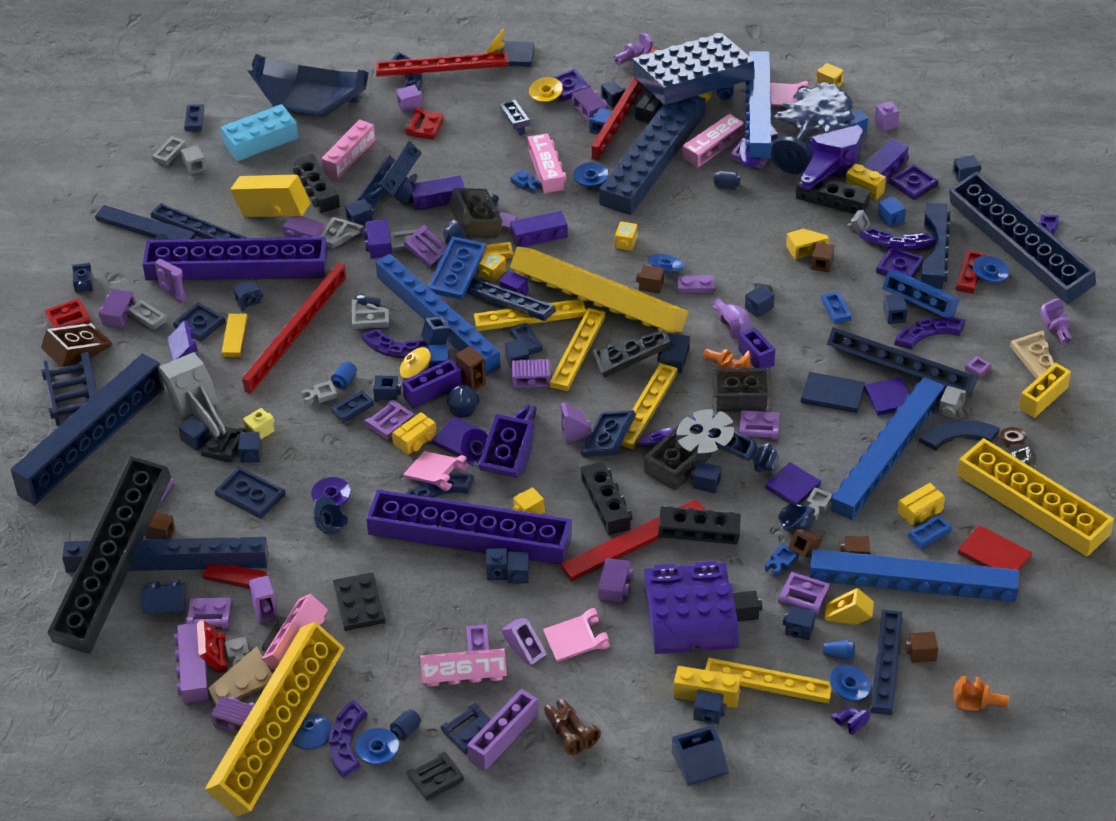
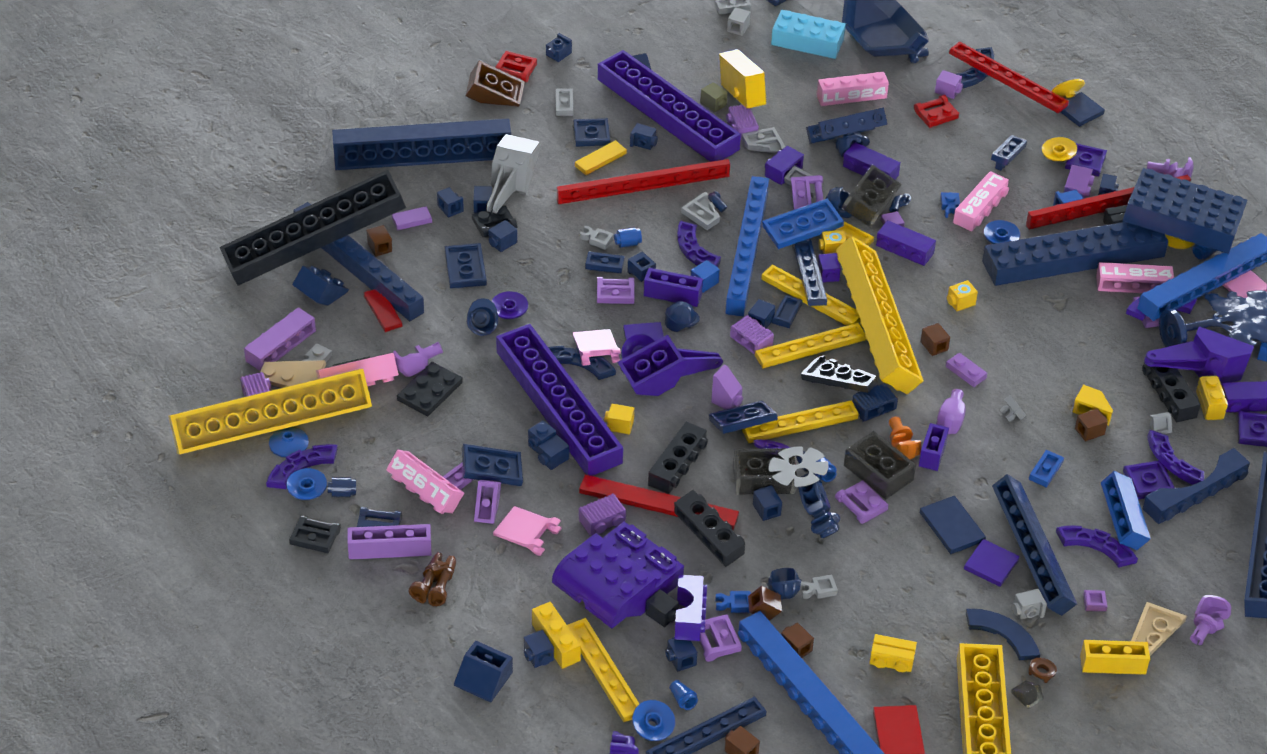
camera: 45 degrees right, 0 degrees up
(85, 379) = (473, 113): dark blue fence -> none
(116, 308) = (547, 83): medium lavender brick -> none
(141, 224) = (647, 43): dark blue tile -> none
(170, 279) = (603, 90): medium lavender plate -> none
(170, 455) = (449, 202): none -> dark blue brick
(181, 341) = (552, 140): slope -> none
(186, 221) = (680, 67): dark blue tile -> none
(211, 646) = (298, 332): red plate -> none
(212, 610) = (338, 316): medium lavender plate -> none
(257, 226) = (713, 97): none -> olive brick
(259, 422) = (529, 226): light yellow brick -> none
(263, 599) = (367, 335): medium lavender brick -> none
(316, 183) = (797, 96): black brick -> none
(325, 584) = (416, 362): none -> medium lavender piece
(359, 212) = (796, 137): dark blue brick -> none
(414, 433) = (616, 311): yellow brick -> none
(415, 362) = (684, 264): yellow dish -> none
(435, 331) = (723, 253): dark blue brick -> none
(472, 368) = (709, 297): reddish brown brick -> none
(490, 613) = (492, 465): none -> dark blue tile
(667, 262) = (962, 335): blue dish -> none
(727, 179) = (1102, 314): dark blue brick -> none
(759, 301) = (989, 416): dark blue brick -> none
(787, 594) = (690, 620): none -> arch
(792, 484) = (824, 560): dark purple tile -> none
(850, 608) = (731, 675): yellow slope -> none
(887, 448) = (928, 594): blue brick -> none
(891, 211) = (1199, 435): blue brick -> none
(895, 308) = (1090, 505): dark blue brick -> none
(929, 532) = (871, 677): blue plate -> none
(968, 279) = (1199, 529): red tile -> none
(990, 269) = (1219, 534): blue dish -> none

